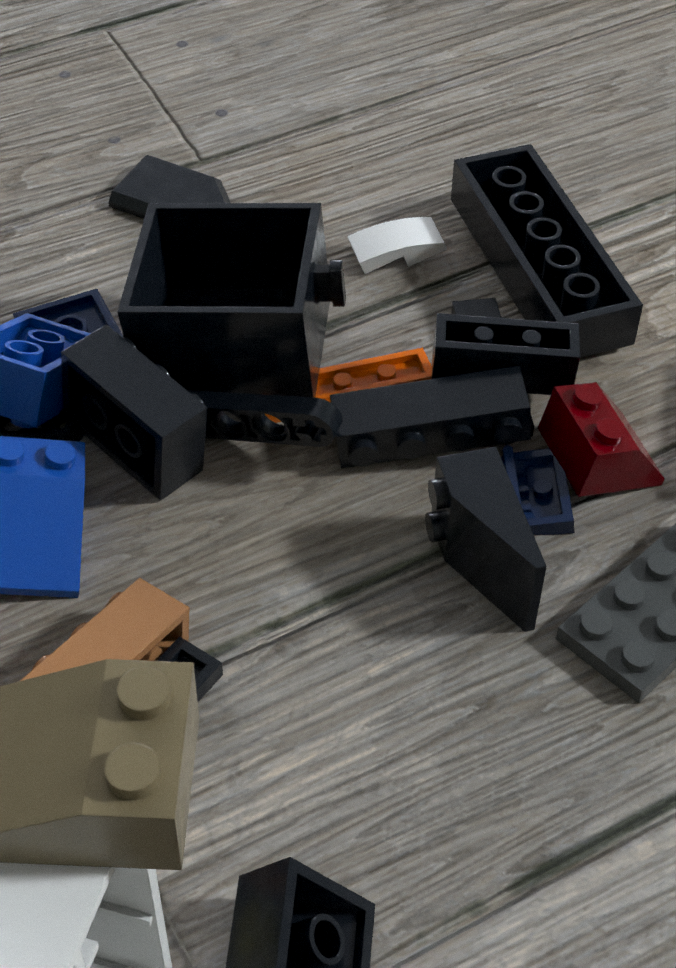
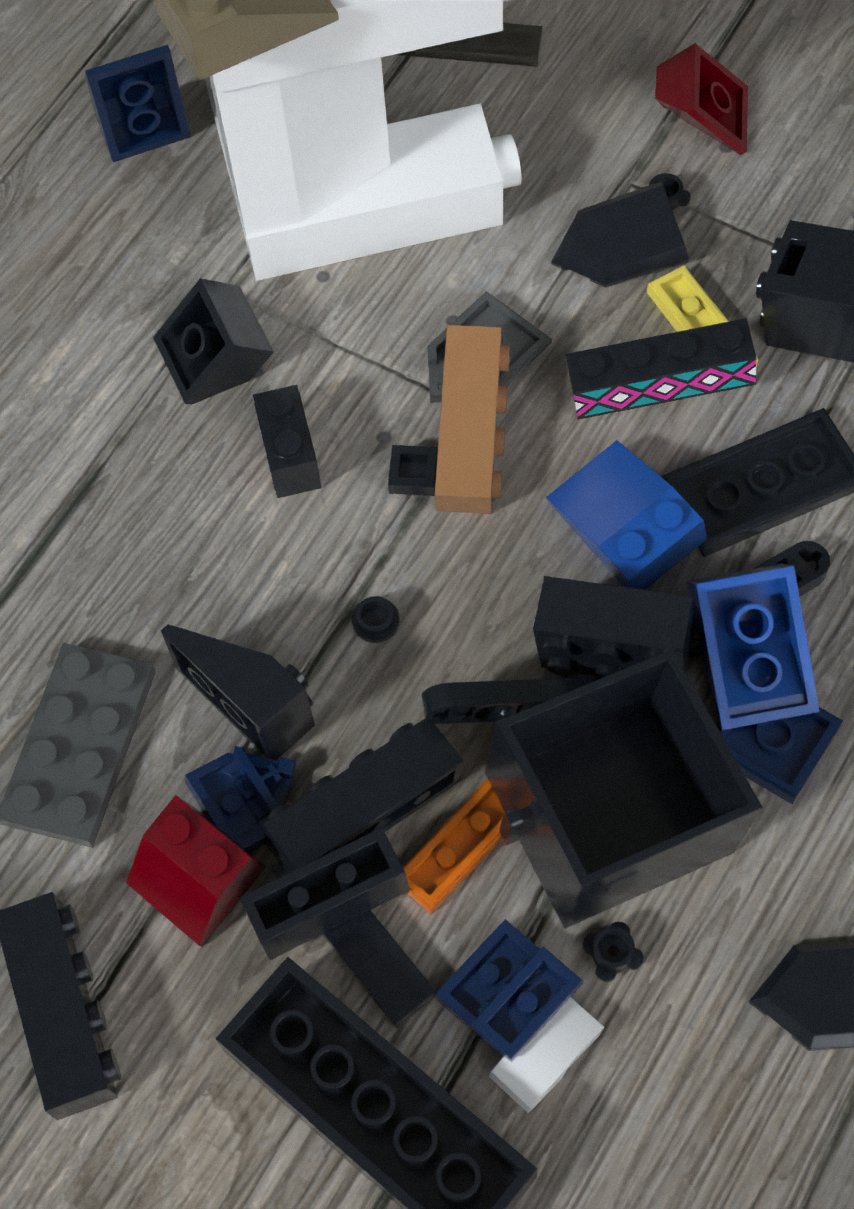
camera: 155 degrees right, 15 degrees up
(292, 765) = (287, 441): none -> black brick
(320, 563) = (375, 619): none -> black plate
(399, 276) = (508, 990): none -> dark blue slope

